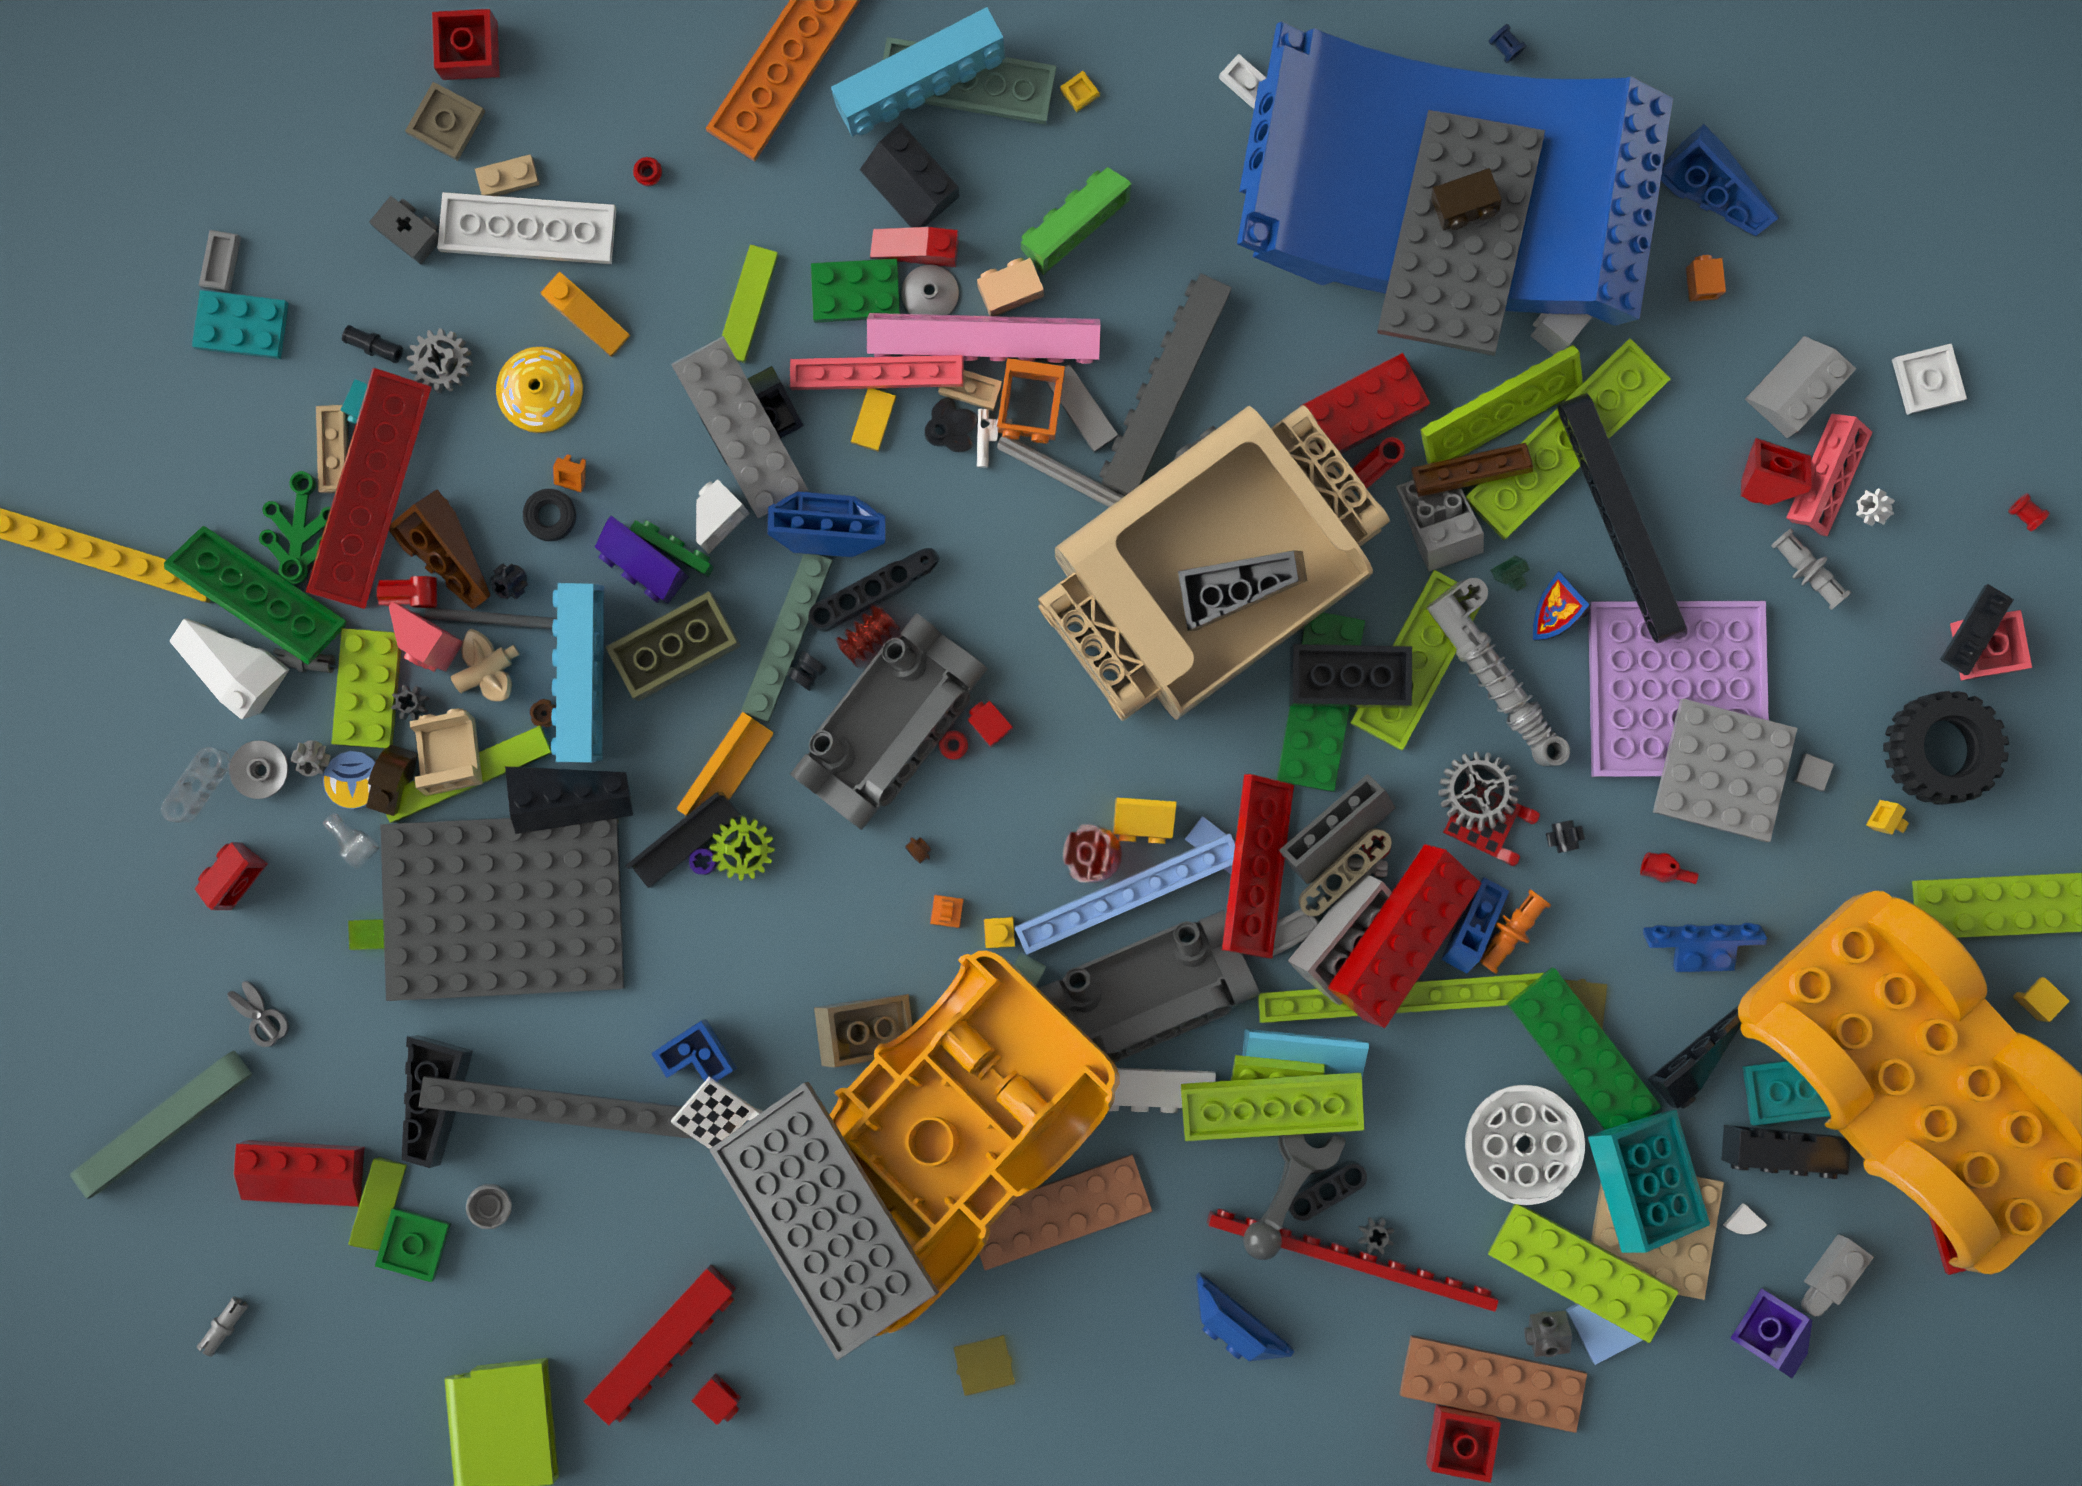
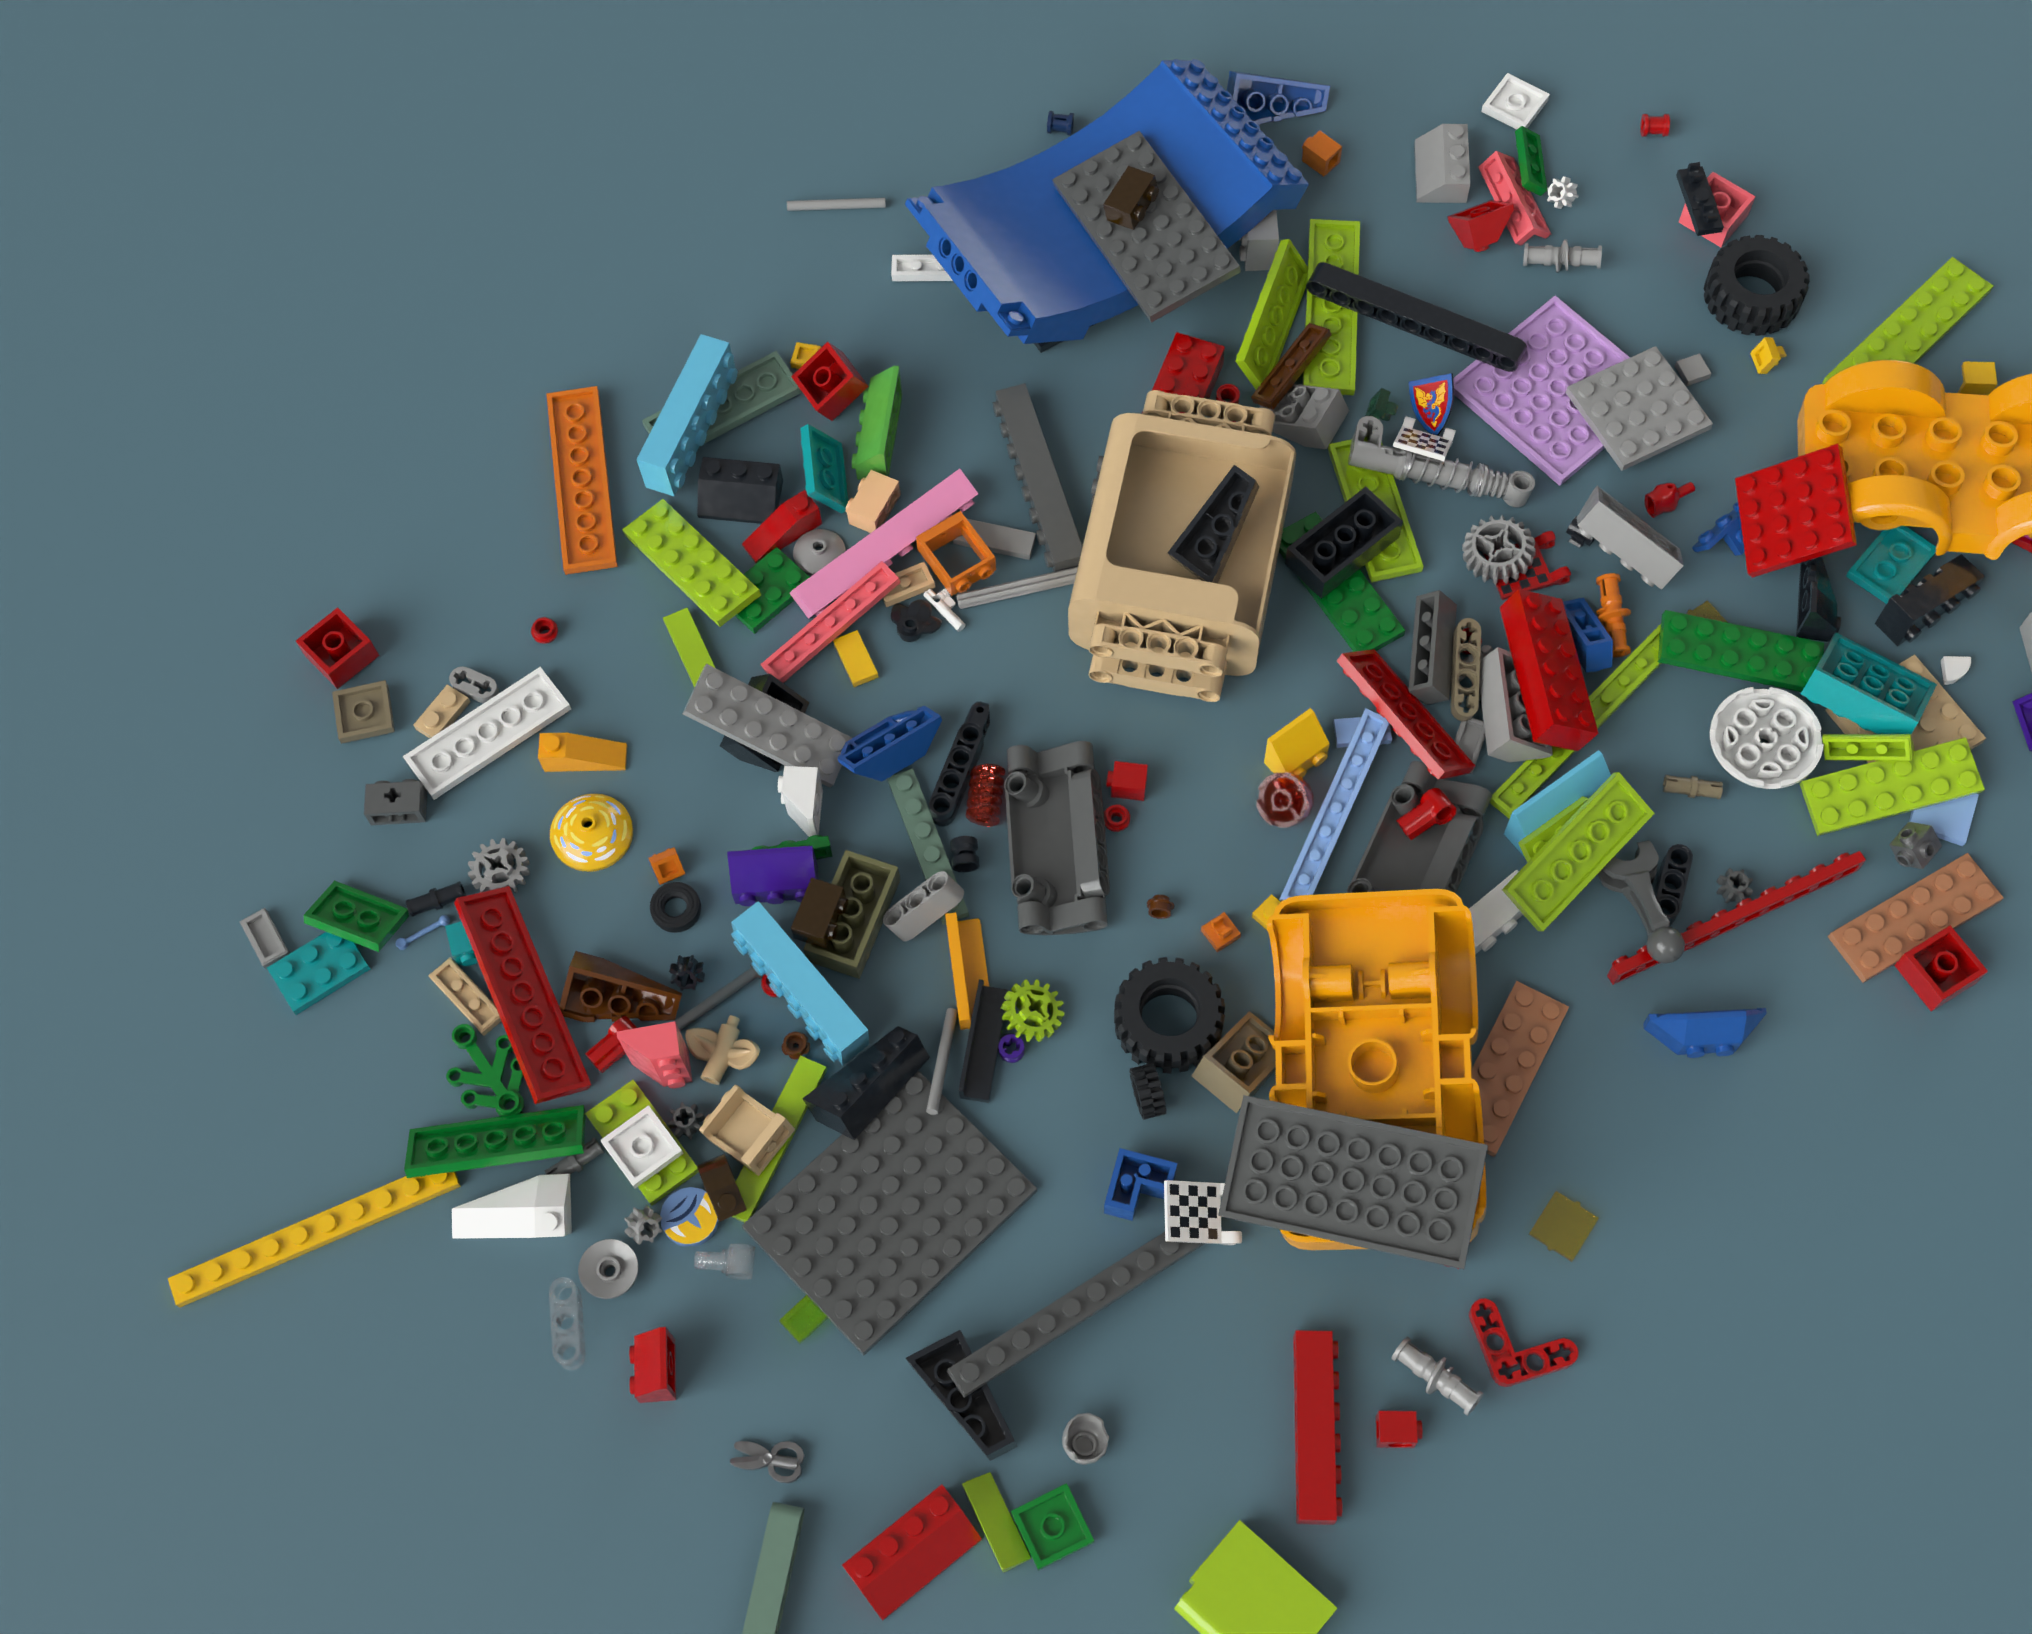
camera: 40 degrees left, 20 degrees down
(297, 307) = (356, 916): none -> green plate
(320, 359) = (402, 943): none -> medium blue hinge
(355, 698) = (641, 1147): none -> white plate
(546, 175) = (476, 680): none -> light grey beam
(637, 631) = (819, 913): none -> dark brown brick
(638, 827) = (942, 1061): none -> light grey bar
(731, 690) = (923, 906): none -> light grey beam
(767, 992) = (1147, 1091): none -> black tyre
(780, 1390) = (1437, 1376): none -> light grey piece
(798, 947) = (1176, 980): none -> black tyre
(814, 213) = (691, 562): none -> lime plate
(848, 1417) = (1507, 1354): none -> red beam
(993, 222) = (824, 468): none -> teal plate
(1070, 140) = (829, 381): none -> red brick
(1198, 967) = (1433, 809): none -> red piece
(1429, 1127) = (1692, 786): none -> dark tan pin
(1508, 643) = (1423, 442): none -> white flag
(1591, 881) = (1629, 539): none -> light grey slope
(1593, 1229) = (1868, 747): none -> lime slope
(1741, 989) = (1795, 511): none -> red plate
(1880, 451) = (1531, 161): none -> green plate

